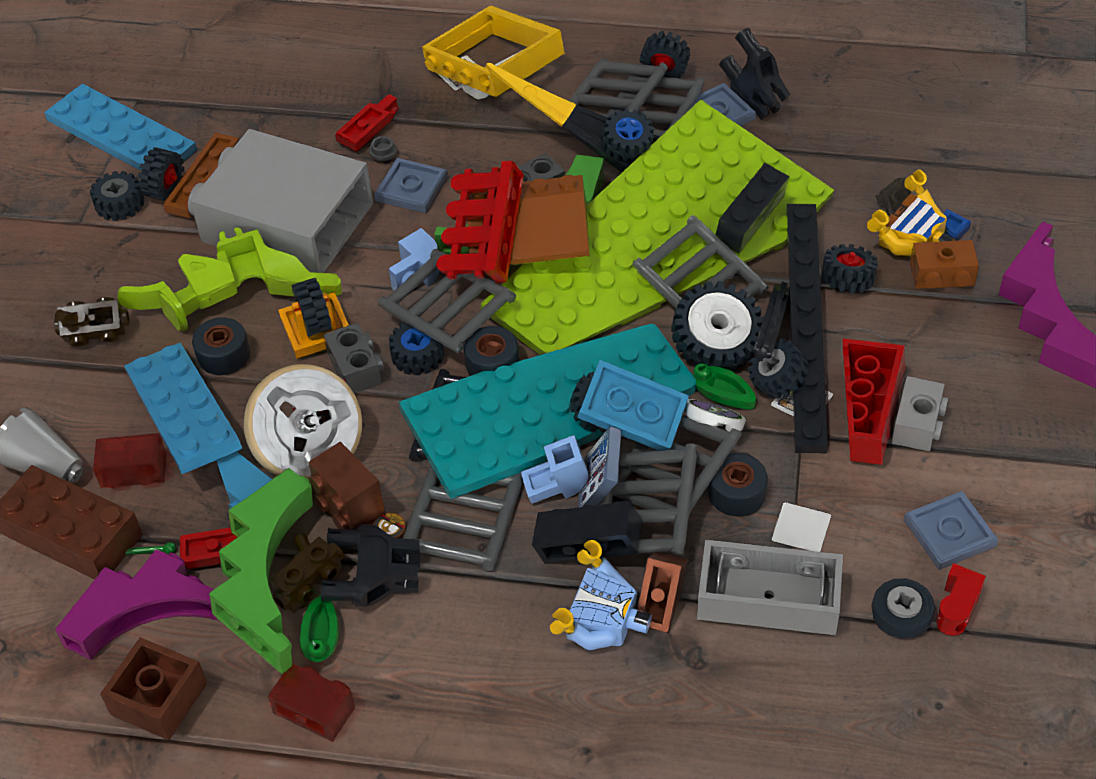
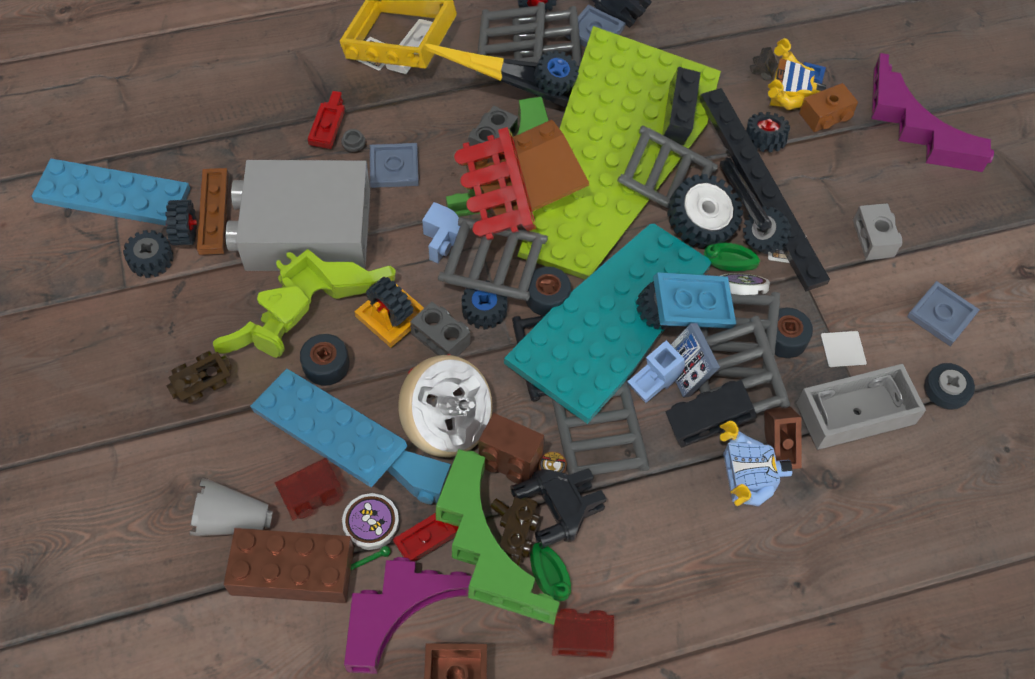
camera: 30 degrees left, 10 degrees up
(172, 513) = (370, 521): none -> tile
(872, 391) = (841, 230): red wedge -> none
(957, 608) = (983, 364): red leg -> none

